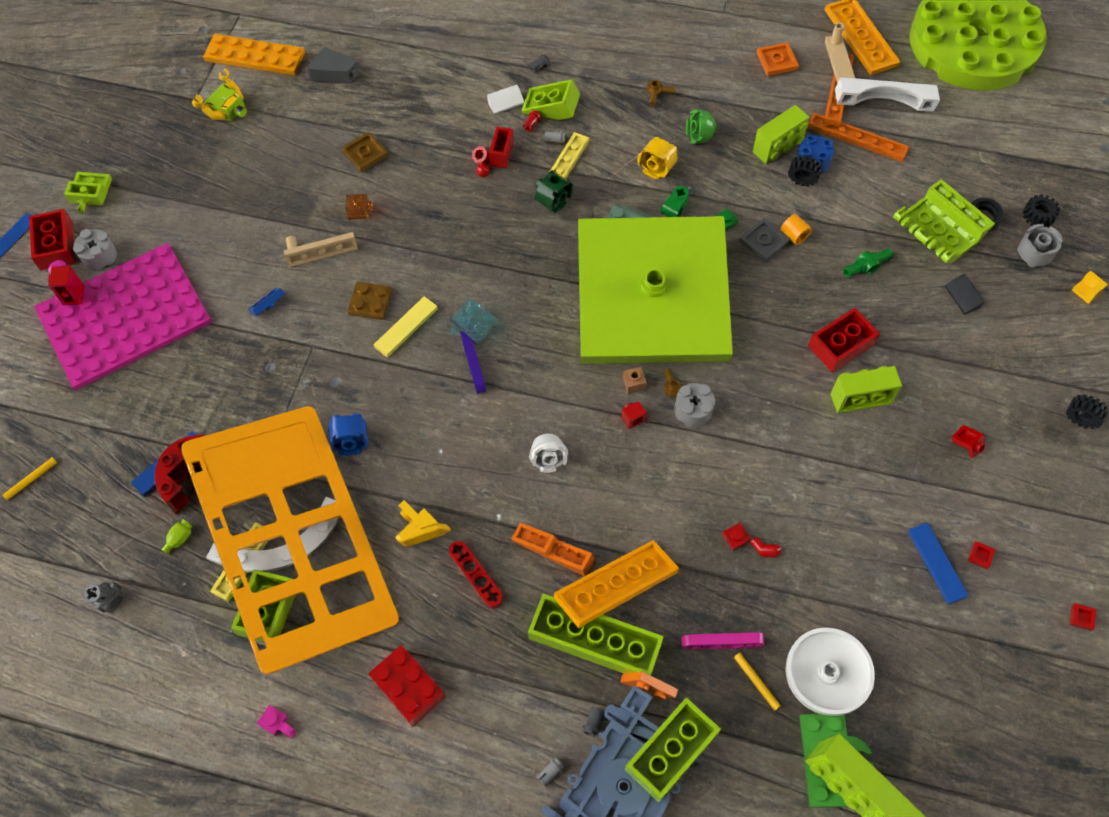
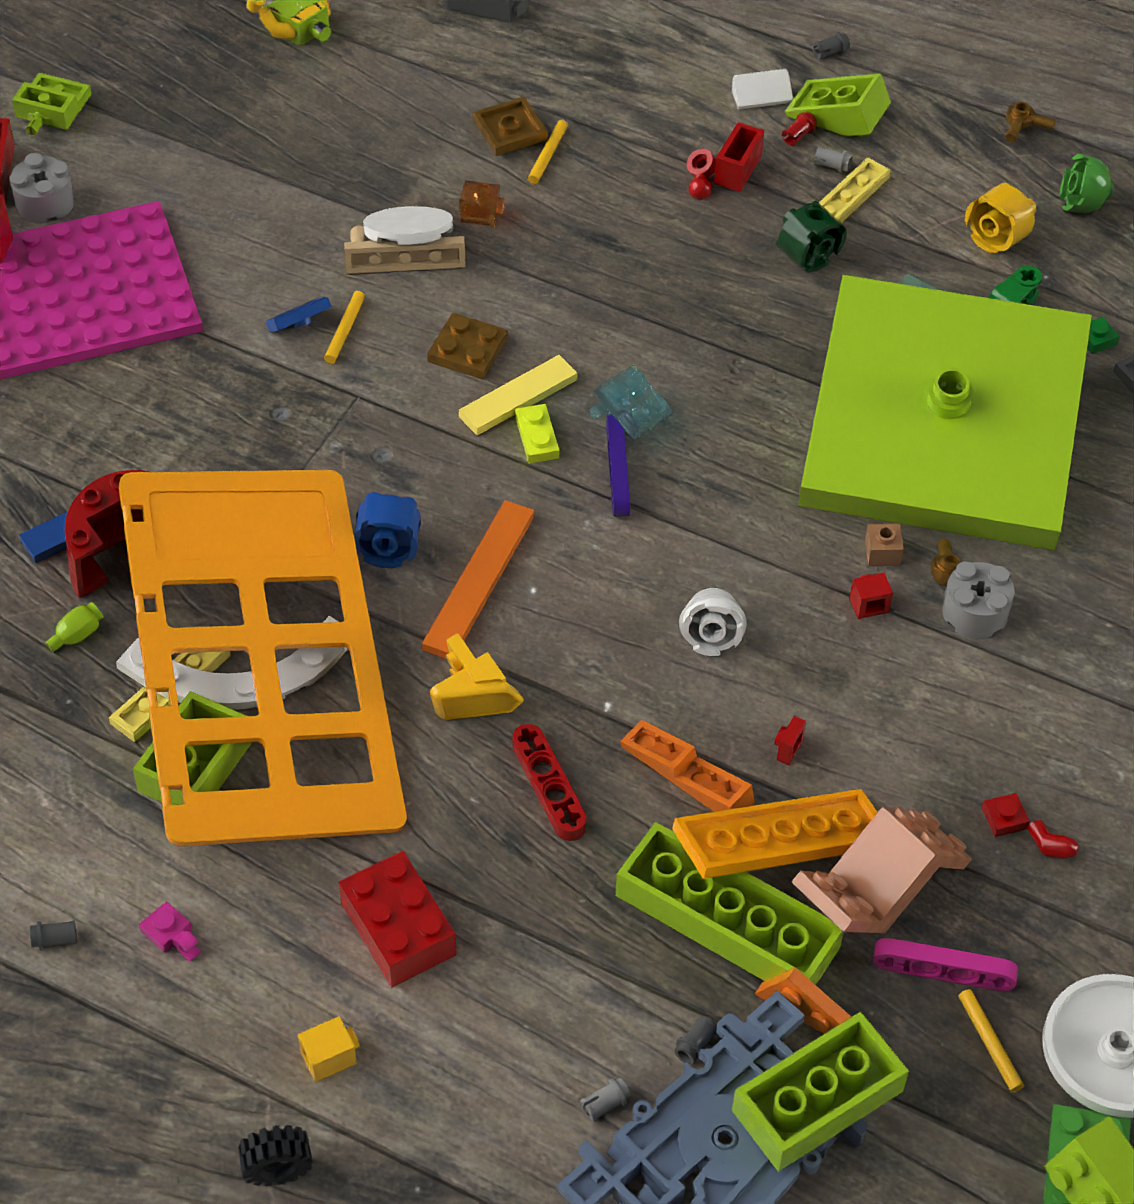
camera: 10 degrees right, 10 degrees down
(201, 743) = (53, 934): none -> dark grey pin
(295, 303) = (344, 327): none -> yellow bar
(318, 230) = (408, 225): none -> white tile
(384, 778) = (328, 1048): none -> yellow brick
(389, 167) = (547, 152): none -> yellow bar
(407, 452) = (479, 577): none -> orange tile
(422, 349) = (537, 433): none -> neon yellow plate
(606, 517) = (790, 739): none -> red plate
(677, 595) = (883, 870): none -> nougat bracket

